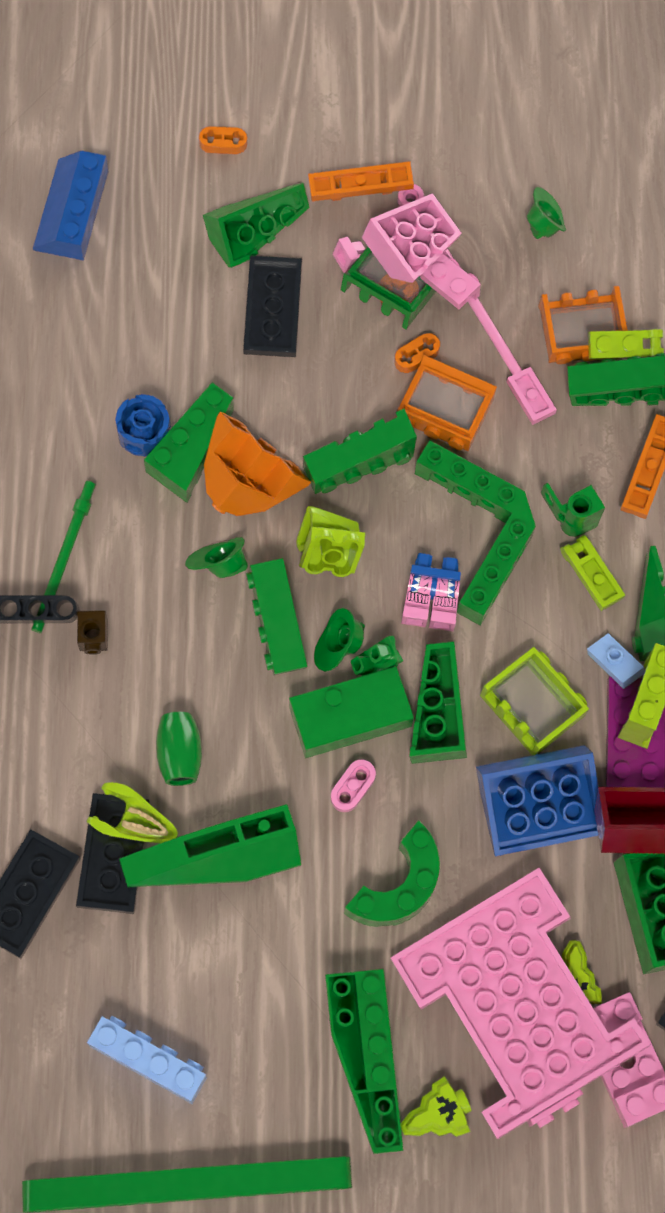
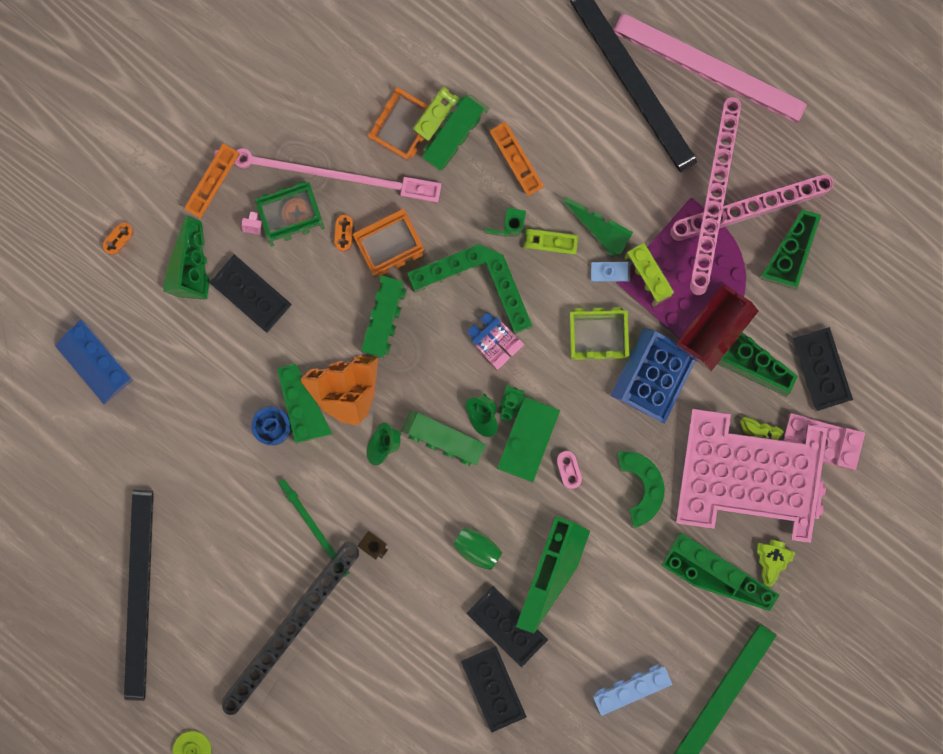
camera: 50 degrees left, 15 degrees up
(139, 820) = (502, 601): lime animal -> none
(329, 543) = (423, 375): lime piece -> none
(411, 237) = (279, 185): bright pink wedge -> none
(439, 715) = (565, 391): green wedge -> none
(451, 281) = (319, 182): bright pink bracket -> none
(545, 215) = (316, 88): green piece -> none

